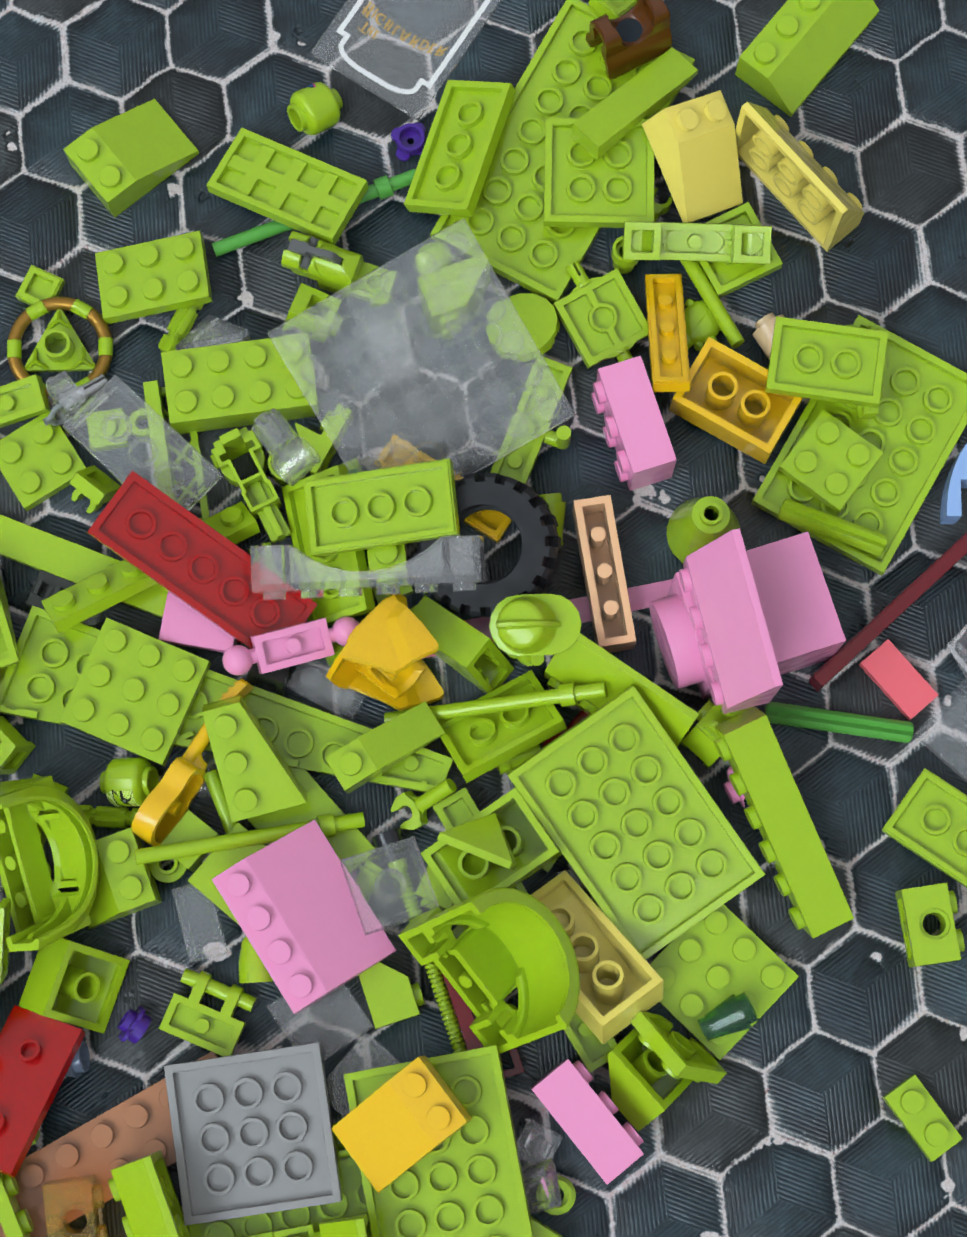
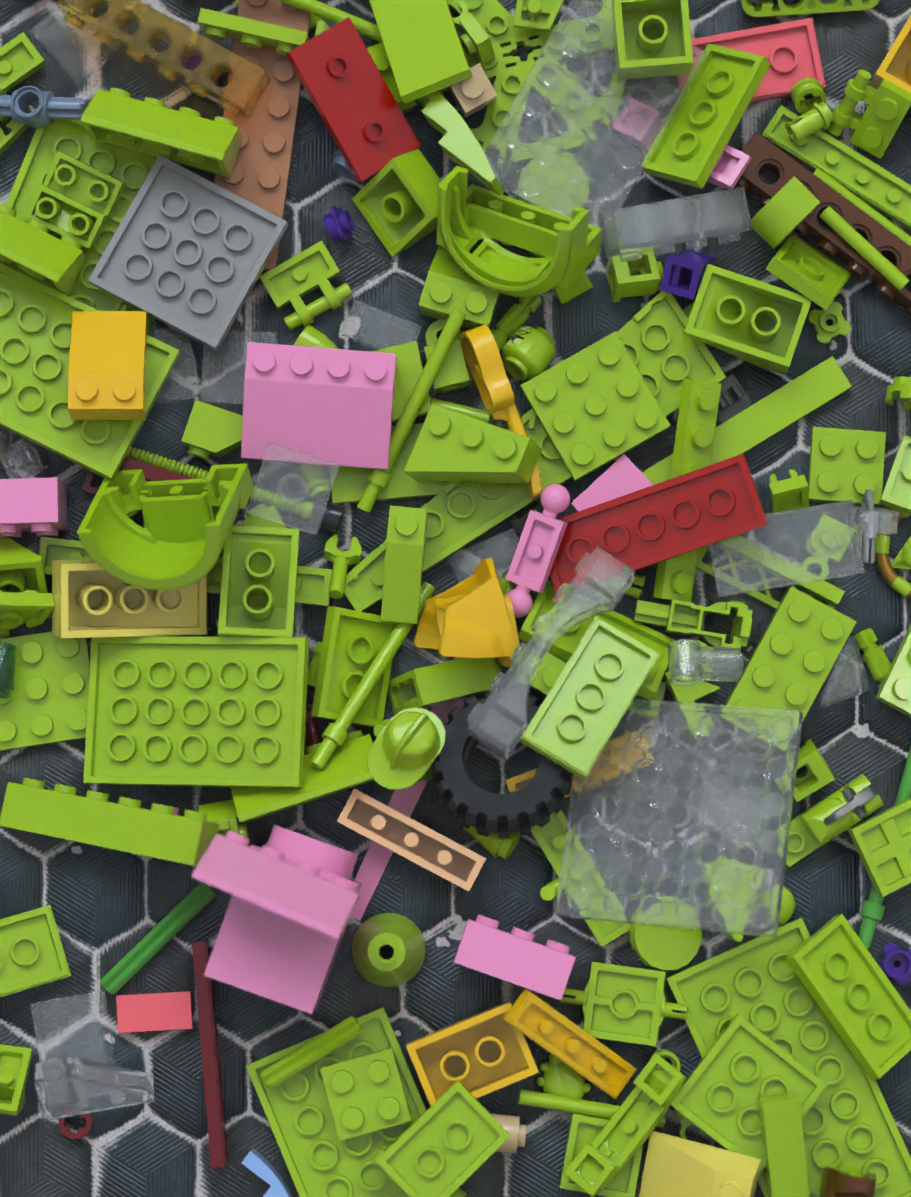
camera: 125 degrees right, 5 degrees up
(481, 838) = (268, 580): lime slope -> none

